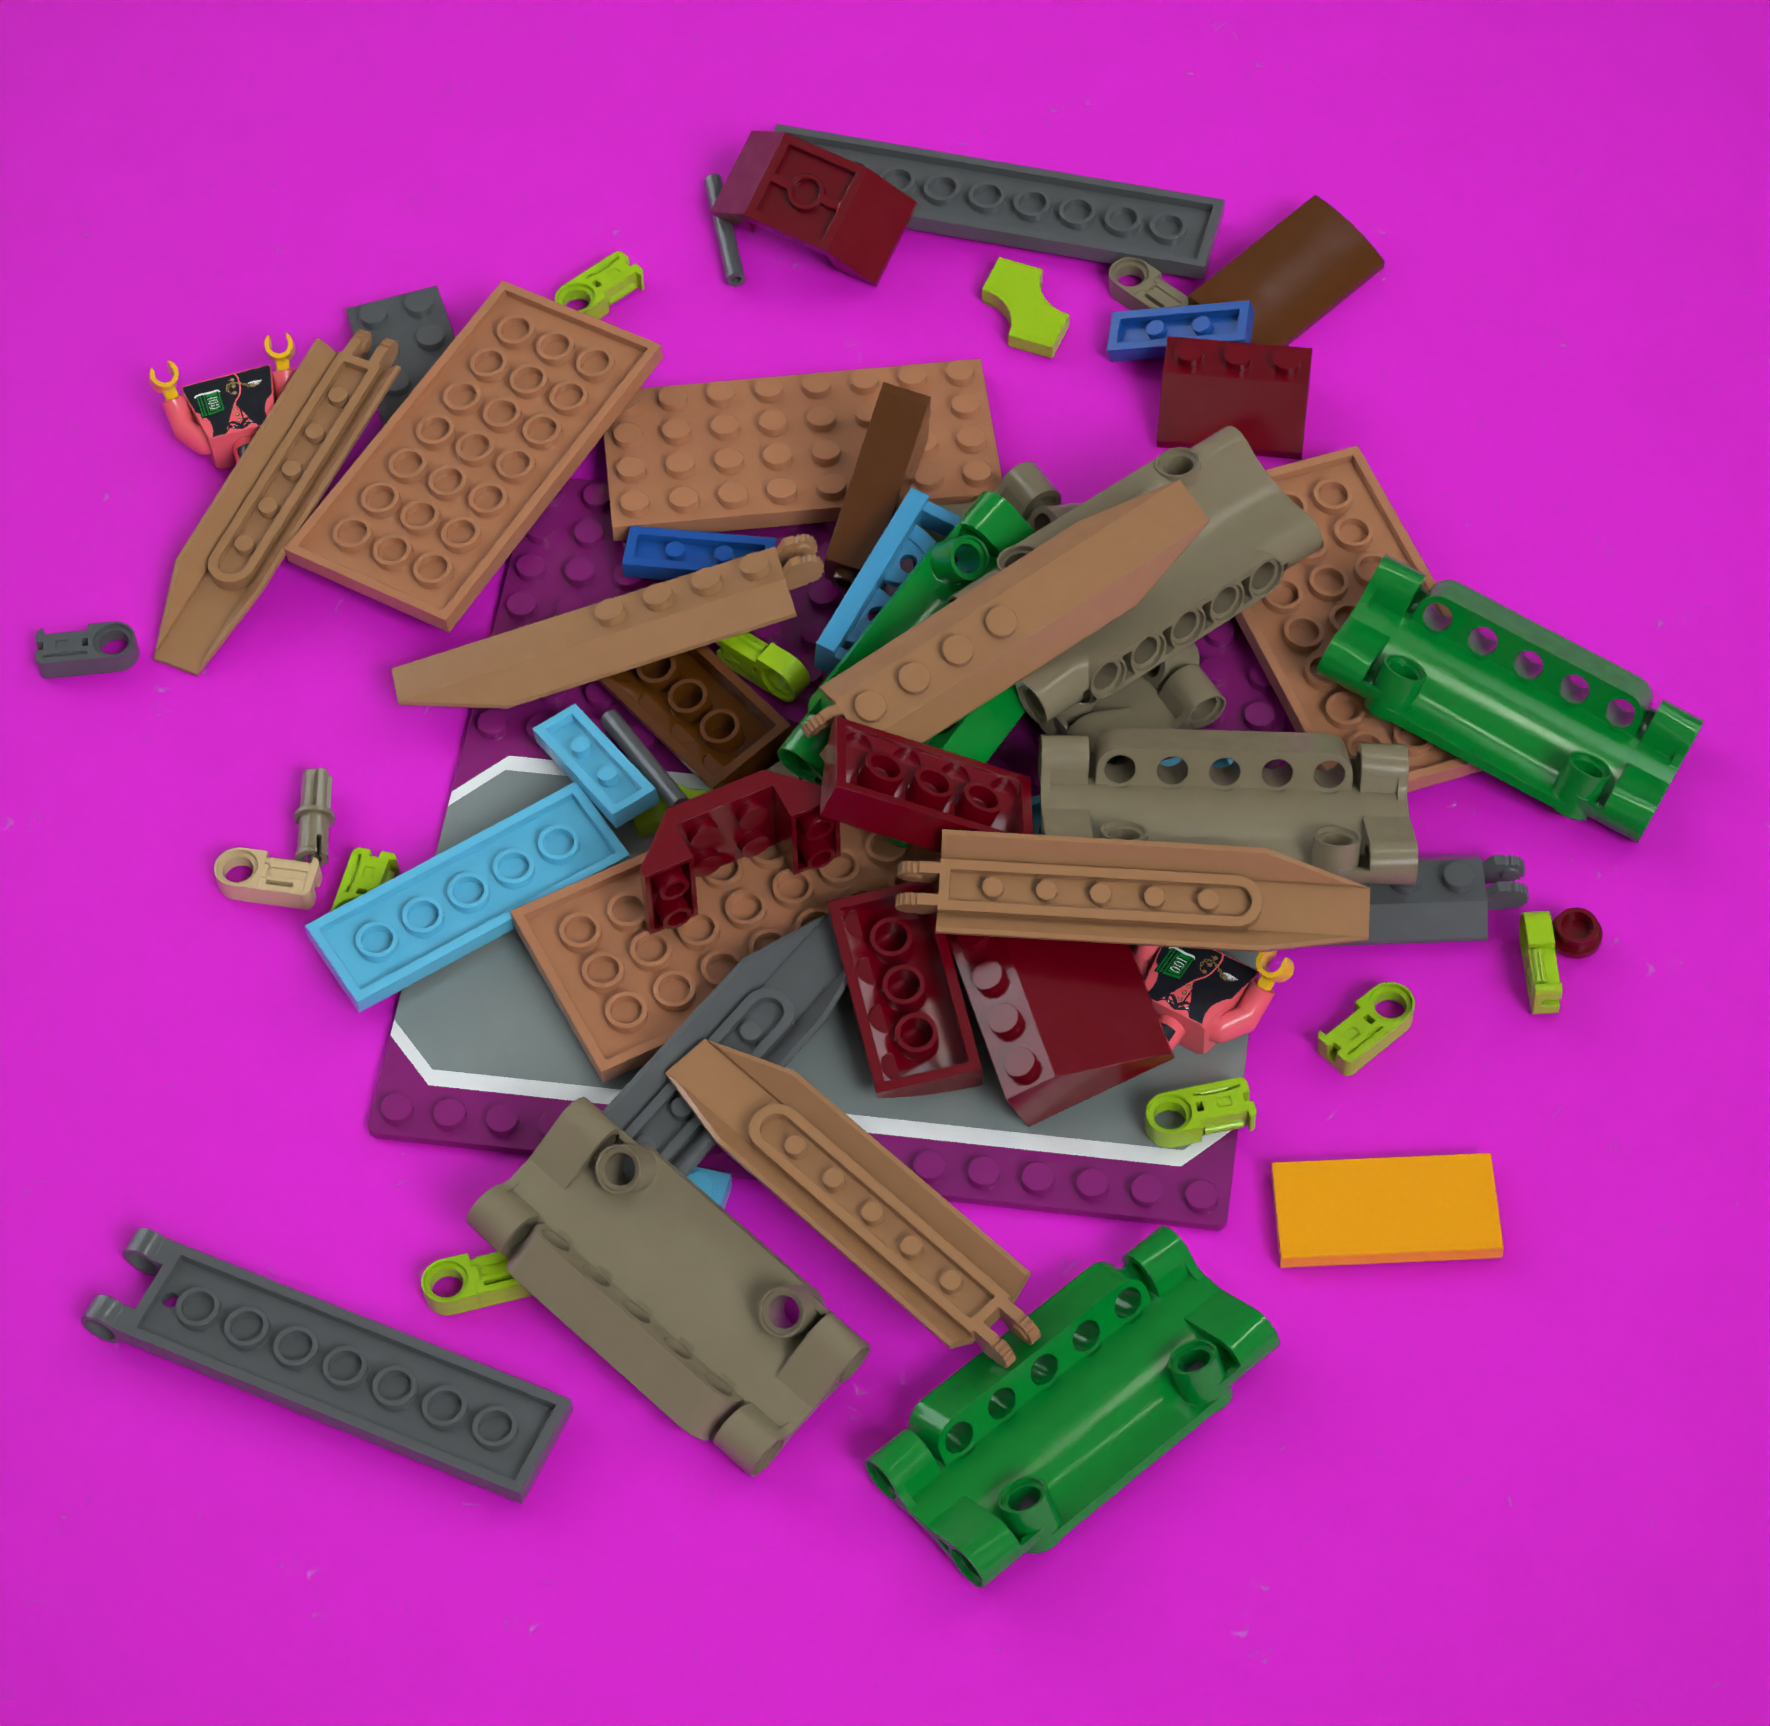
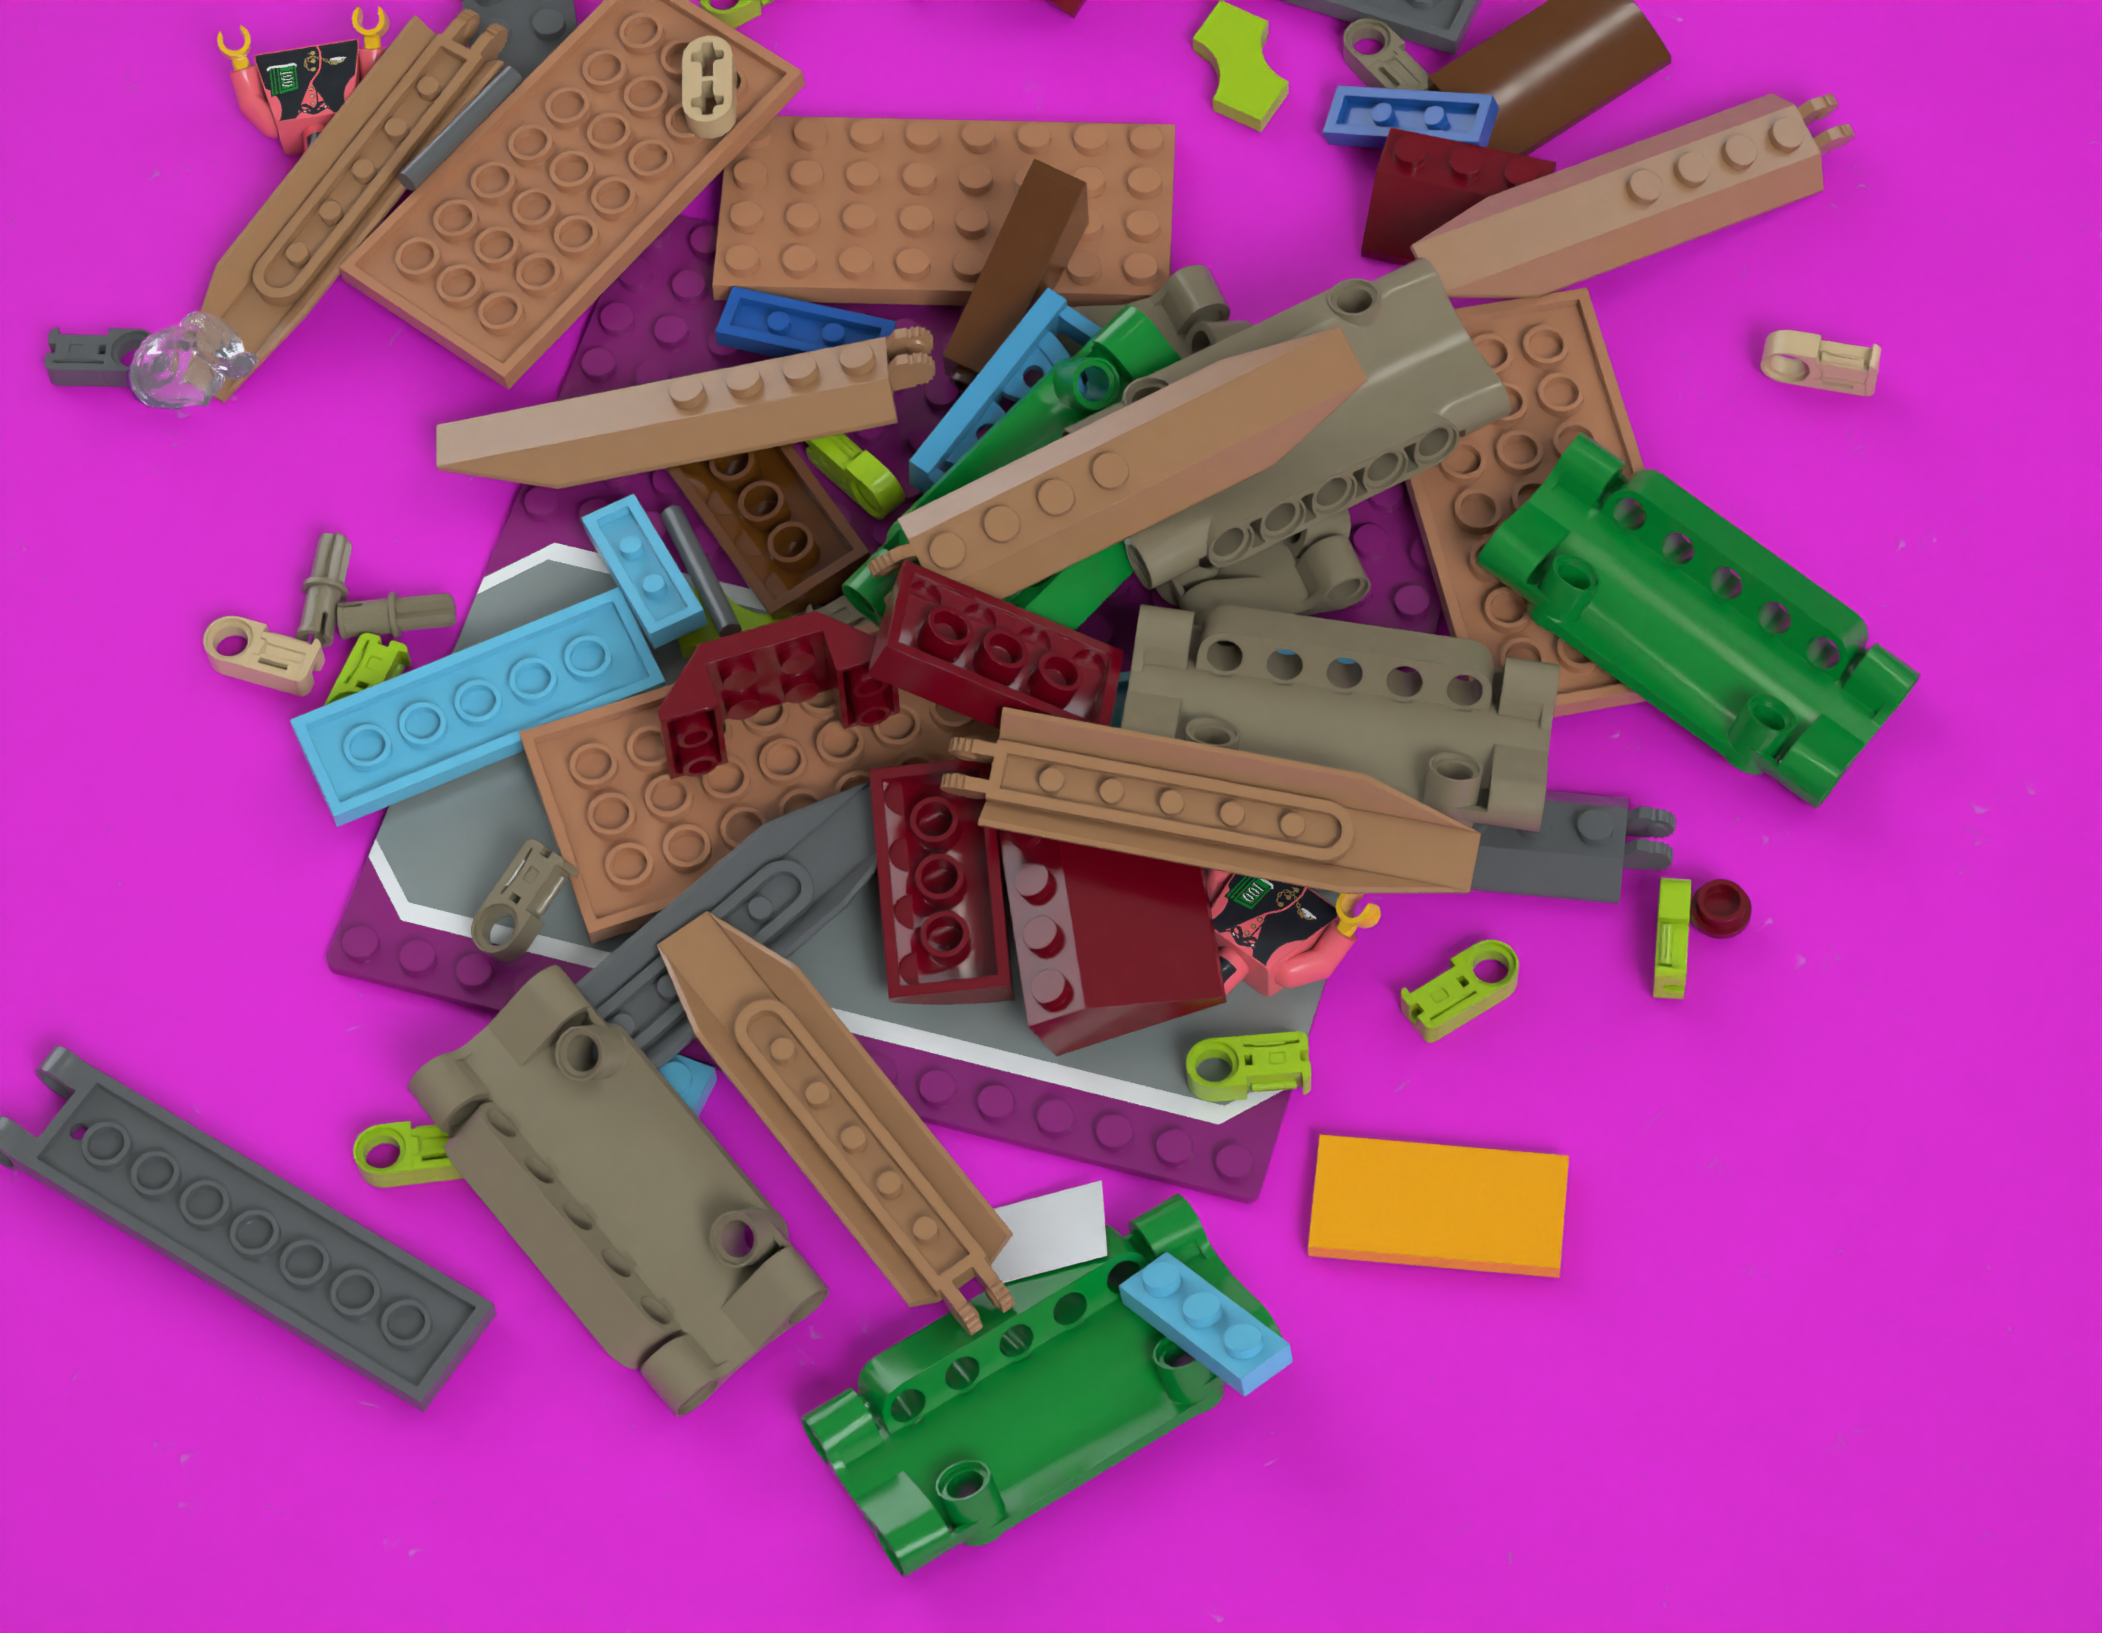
camera: 10 degrees right, 5 degrees up
(163, 643) = (188, 362): none -> clear hair
(372, 424) = (460, 128): none -> dark grey bar
(381, 830) = (395, 614): none -> dark tan axle
(537, 1047) = (524, 895): none -> dark tan piece
(576, 366) = (699, 87): none -> tan beam
(1062, 1272) = (1052, 1232): none -> white sticker
(1212, 1331) = (1206, 1324): none -> medium azure plate
(1387, 370) = (1635, 201): none -> medium nougat hinge
(1566, 485) = (1820, 363): none -> tan piece

